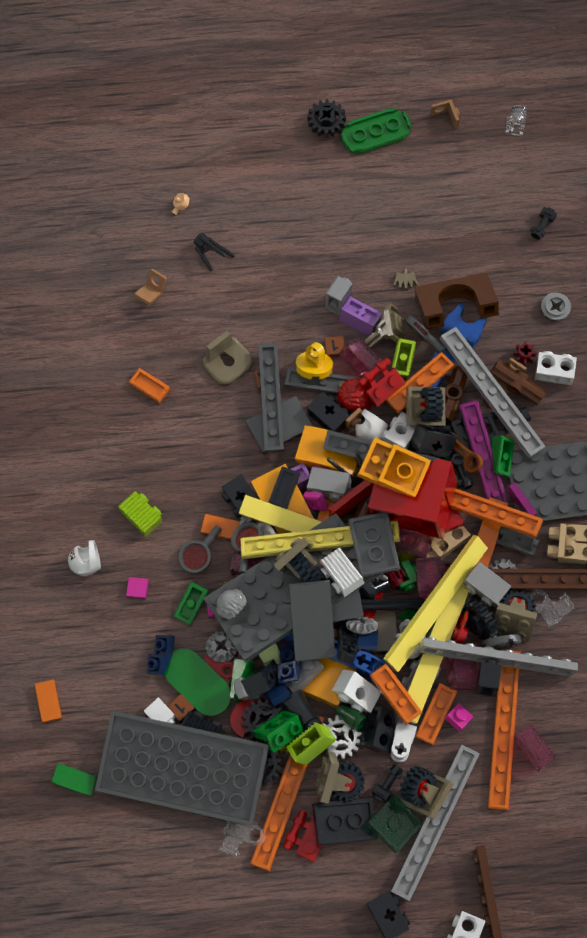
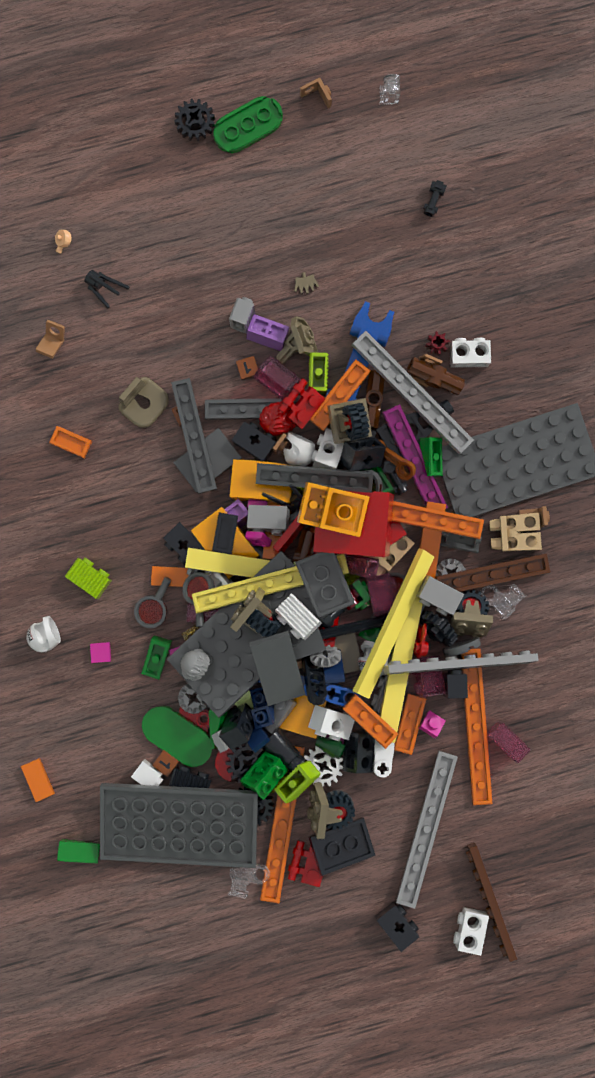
camera: 15 degrees left, 15 degrees up
(160, 659) = (136, 722): dark blue slope -> none
(314, 363) = (230, 392): yellow tile -> none
(382, 792) = (372, 809): black bar -> none
(394, 823) = (389, 839): clear green plate -> none
(423, 333) = (335, 342): dark grey piece -> none
(424, 791) = (413, 805): plate -> none
(474, 288) = (375, 282): reddish brown arch -> none
(520, 499) = (459, 501): magenta tile -> none
(556, 299) = (460, 278): light grey gear -> none

